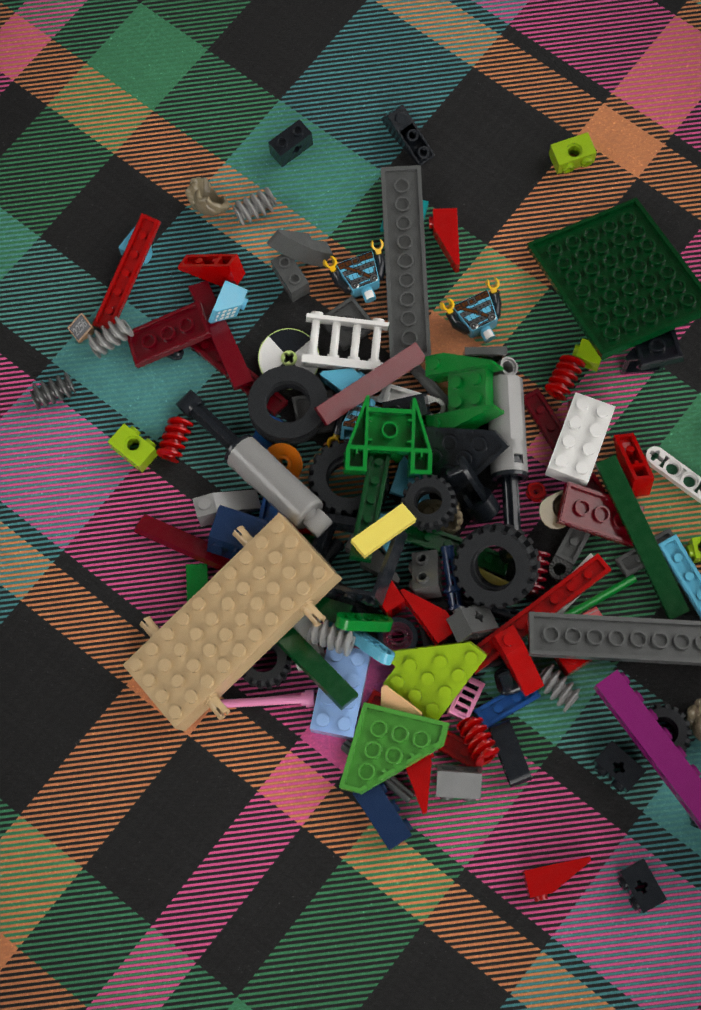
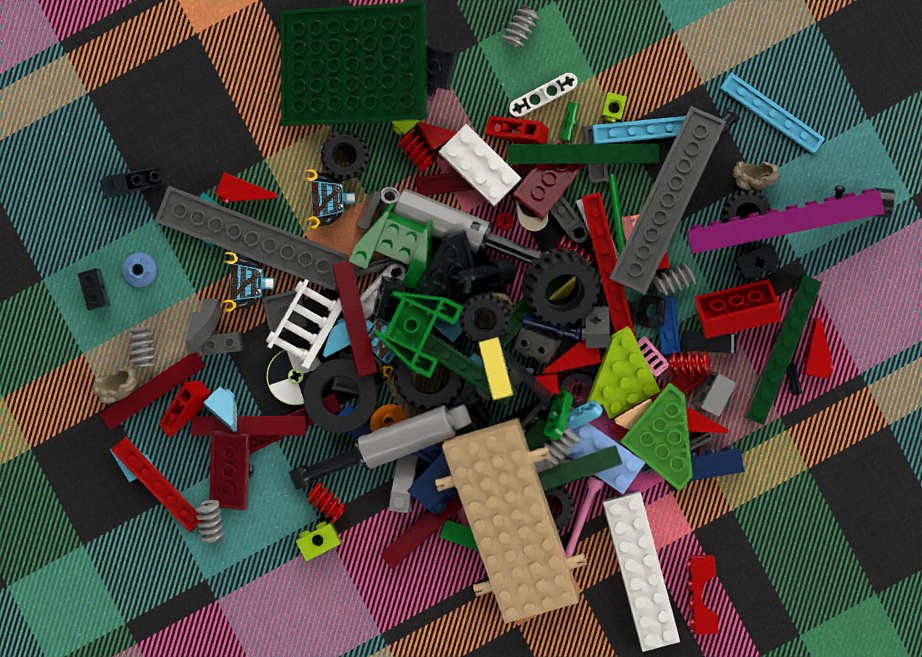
camera: 75 degrees left, 15 degrees up
(52, 390) = (237, 589): dark grey piece -> none
(81, 328) = (188, 542): slope -> none
(211, 879) = (701, 570): none -> red arch
(217, 235) = (152, 390): none -> dark red tile
(235, 786) = (640, 571): none -> white brick
(328, 185) = (149, 273): none -> medium blue piece
(515, 860) = (794, 383): none -> black piece
(517, 660) = (643, 304): red slope -> none
(526, 296) = (338, 140): none -> black tyre
(539, 834) = (782, 349): none -> dark green brick
(559, 764) = (737, 308): none -> red brick
(579, 145) = (210, 35): lime brick -> none
(588, 385) = (436, 135): none -> red piece
(641, 873) = (866, 286): black brick -> none
(667, 512) = (569, 121): none -> green pin

